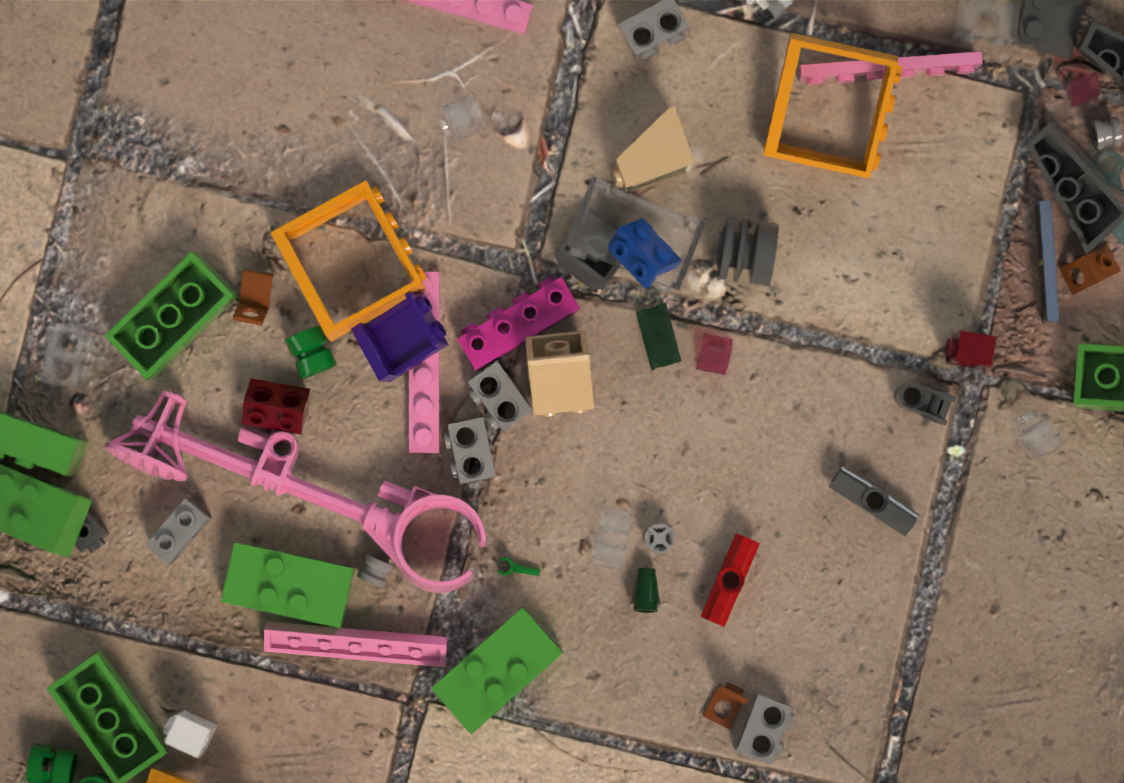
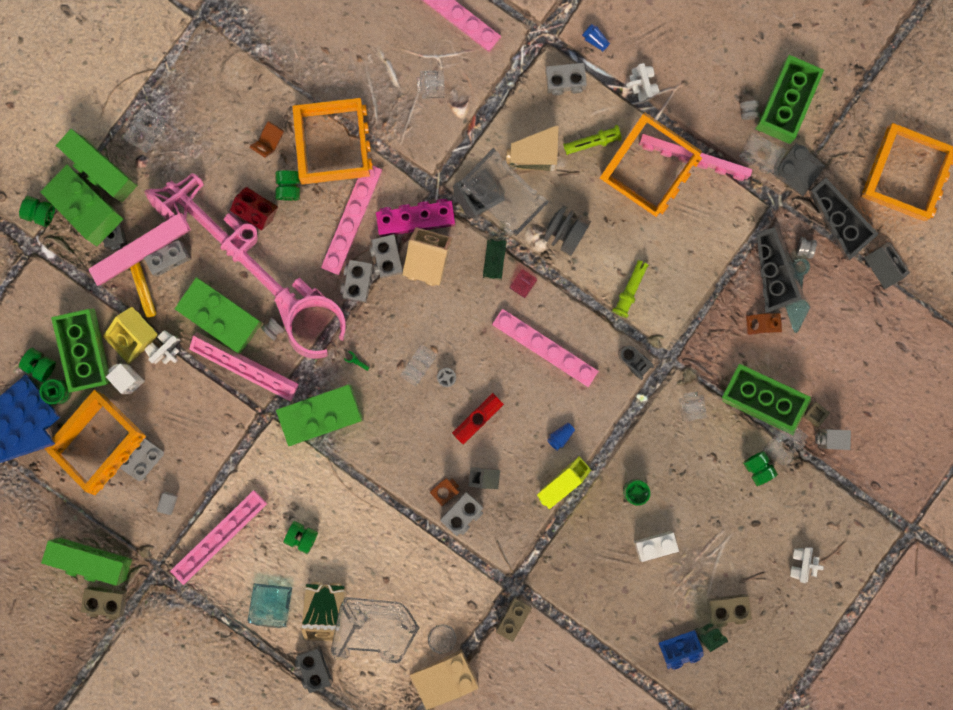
camera: 25 degrees right, 0 degrees up
(133, 535) = (140, 248): none -> bright pink tile
(150, 581) = (143, 290): none -> yellow axle
(169, 666) = (129, 334): none -> light yellow slope
(171, 315) = (215, 131): bright green brick -> none
(220, 678) = (169, 342): none -> white hips
(401, 337) = (343, 198): dark purple panel -> none
(643, 252) = (505, 205): blue bracket -> none
(646, 592) = (426, 405): dark green cone -> none
(741, 90) = (602, 136): none -> lime pin
(775, 663) = (484, 478): none -> dark grey brick
(785, 435) = (545, 348): none -> bright pink plate
(861, 556) = (560, 436): none -> blue cone
(875, 313) = (627, 297): none -> lime pin
(889, 512) = (588, 417): dark grey piece -> none
(894, 622) = (564, 483): none -> neon yellow slope
(970, 350) = (674, 341): dark red brick -> none
(1005, 592) = (636, 492): none -> green wheel
(1047, 262) = (740, 309): sand blue tile -> none
(1066, 659) = (656, 546): none -> white brick
(1083, 89) = (803, 216): clear pink slope -> none

